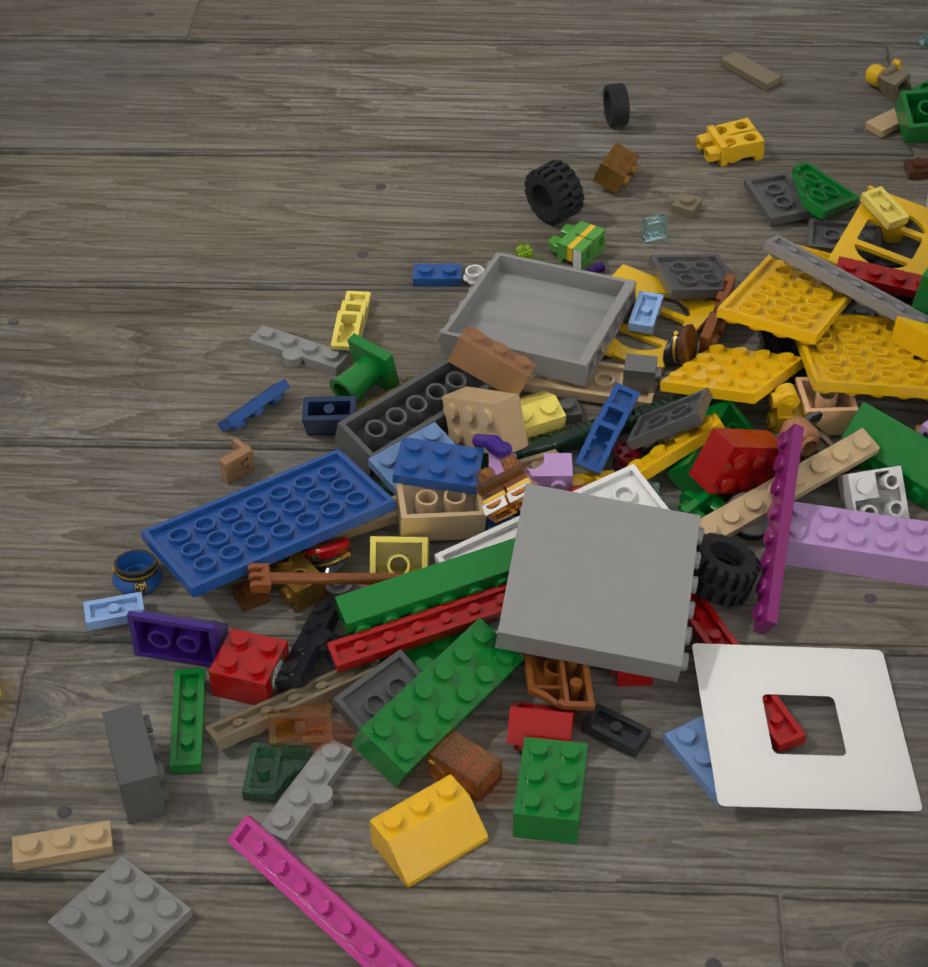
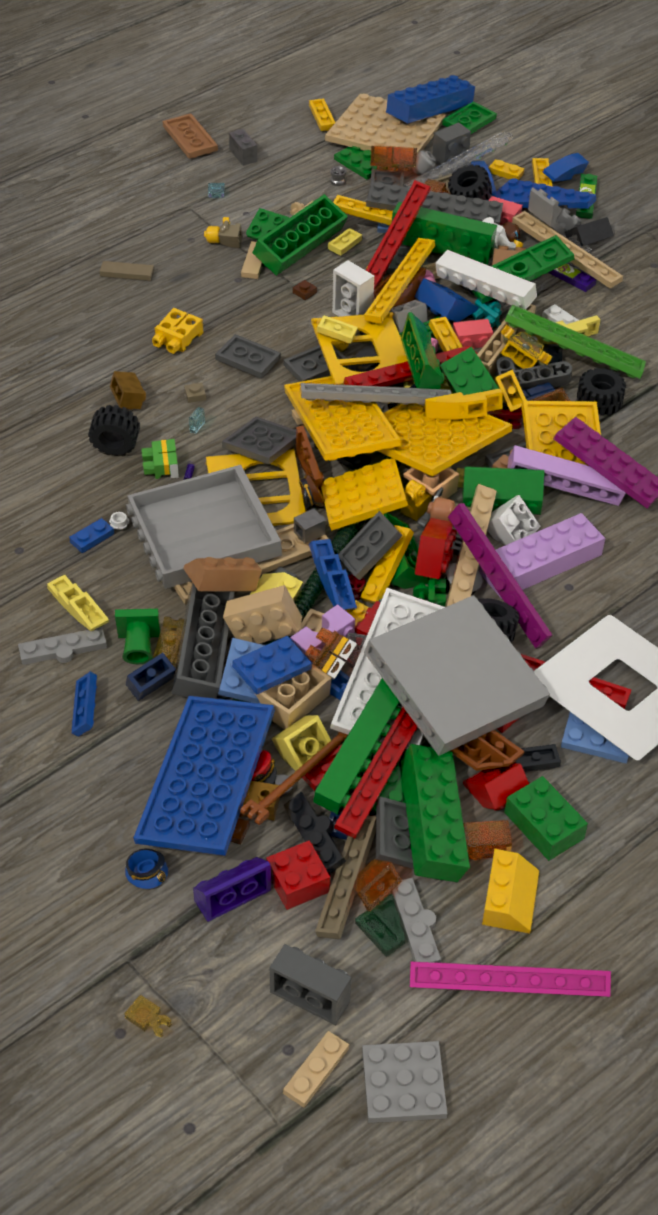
camera: 45 degrees left, 5 degrees up
(111, 610) = (165, 903): light blue plate -> none
(188, 721) = (296, 932): green plate -> none
(237, 462) = (122, 748): medium nougat bracket -> none
(493, 444) = (293, 628): dark purple arm -> none
(524, 250) = (134, 485): clear neon green plate -> none
(616, 104) = (81, 336): black tyre -> none
(645, 312) = (262, 482): light blue plate -> none
(820, 192) = (275, 338): green plate -> none

